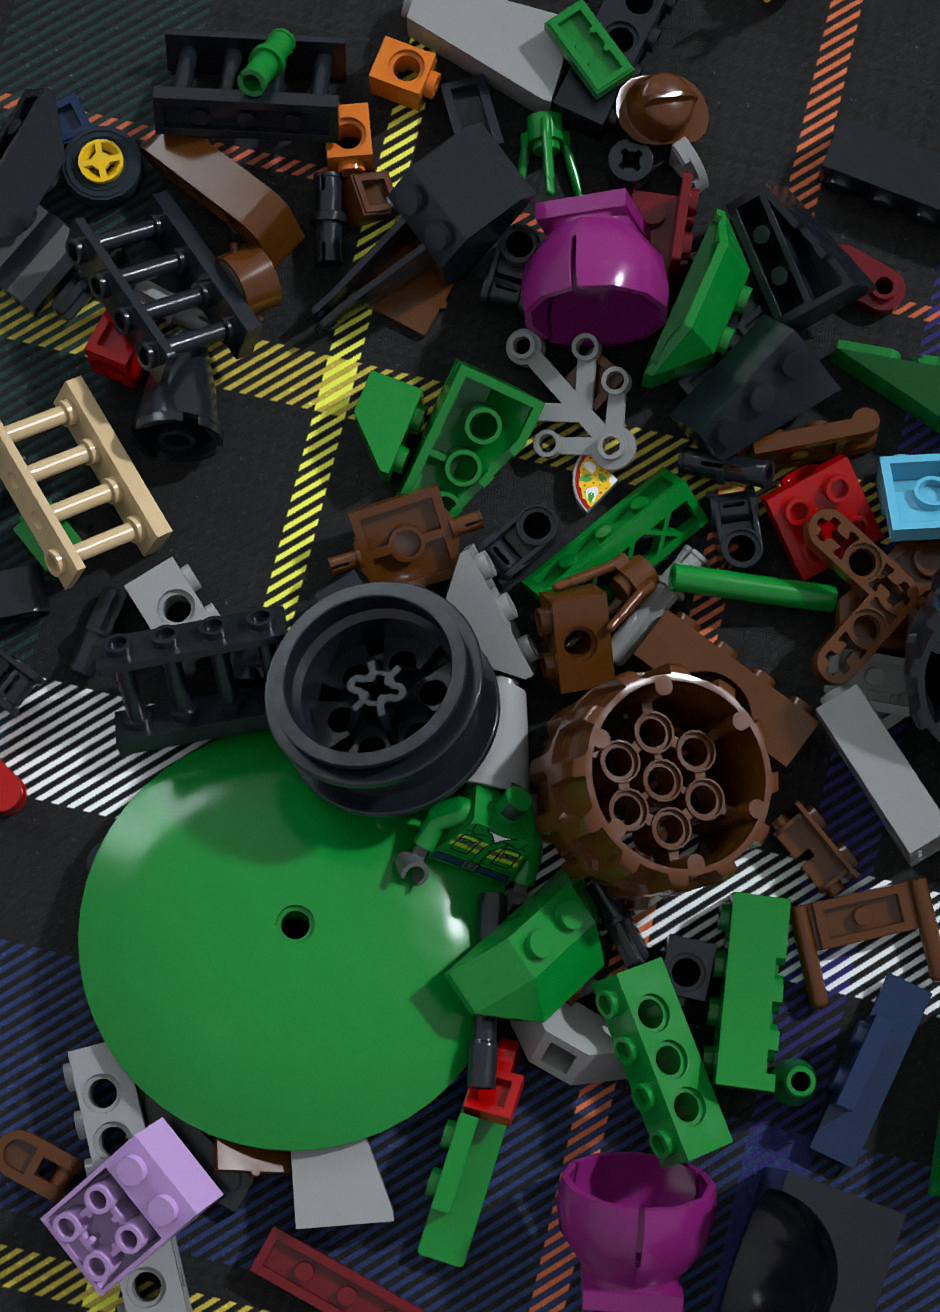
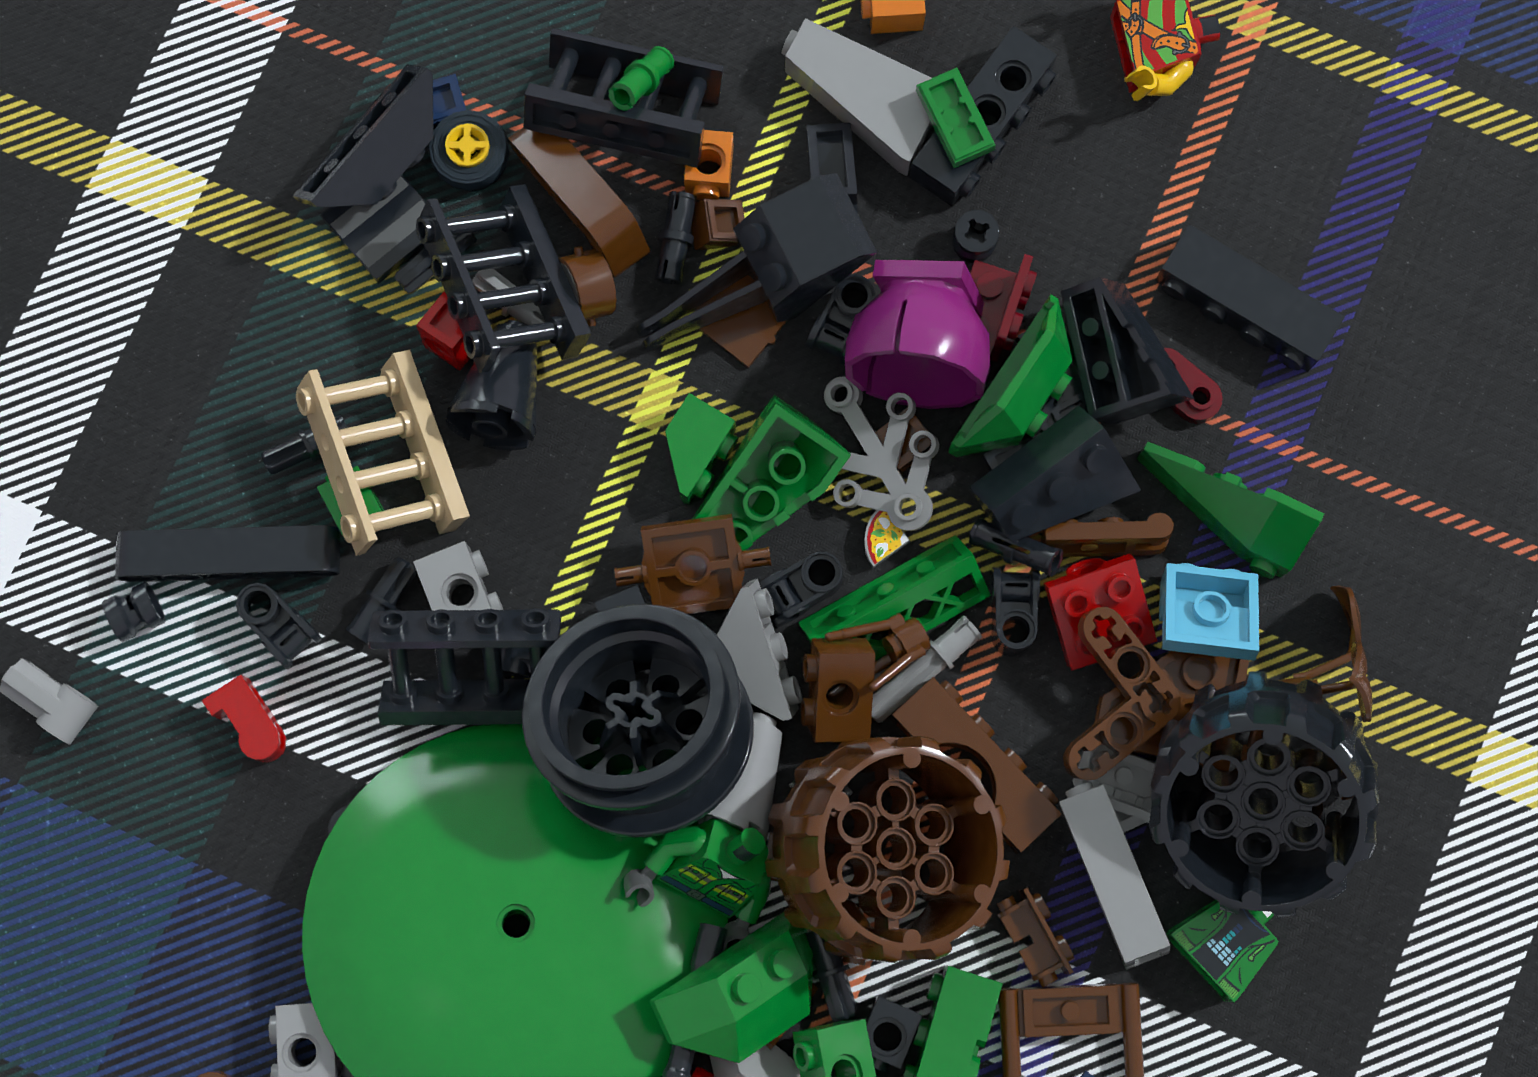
camera: 10 degrees right, 0 degrees up
(399, 56) = (771, 92): orange brick -> none
(546, 138) = (899, 195): green plant -> none
(661, 109) = (1016, 187): reddish brown piece -> none
(685, 159) = (1032, 243): light grey tile -> none
(752, 588) = (1020, 669): green piece -> none

